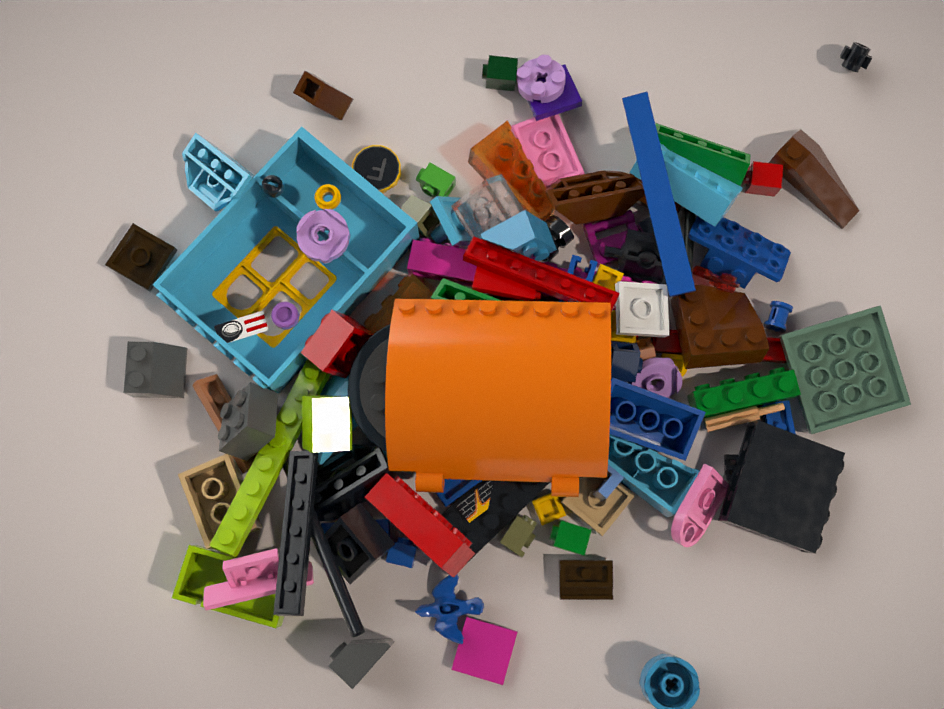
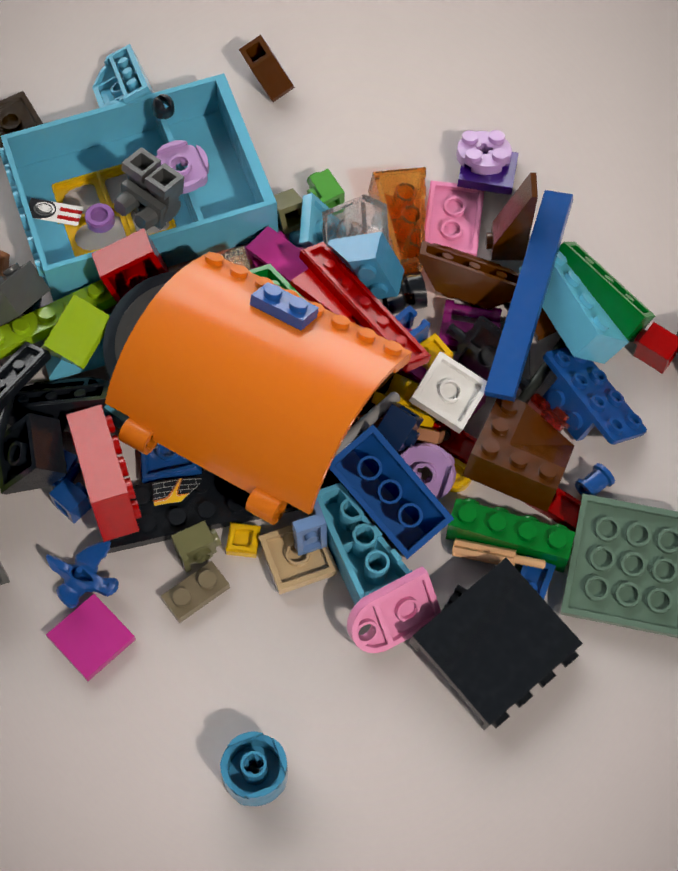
camera: 30 degrees right, 15 degrees down
(315, 273) = (149, 190): none -> dark grey hips
(325, 190) = (209, 133): yellow plate -> none
(378, 166) = (279, 155): black tile -> none
(493, 322) = (284, 306): none -> blue plate
(500, 73) = (447, 129): dark green brick -> none
(539, 569) = (195, 592): none -> dark tan plate
(570, 537) = (246, 575): green brick -> none
(586, 579) = (235, 625): dark brown plate -> none
(607, 132) = (514, 222): none -> reddish brown wedge

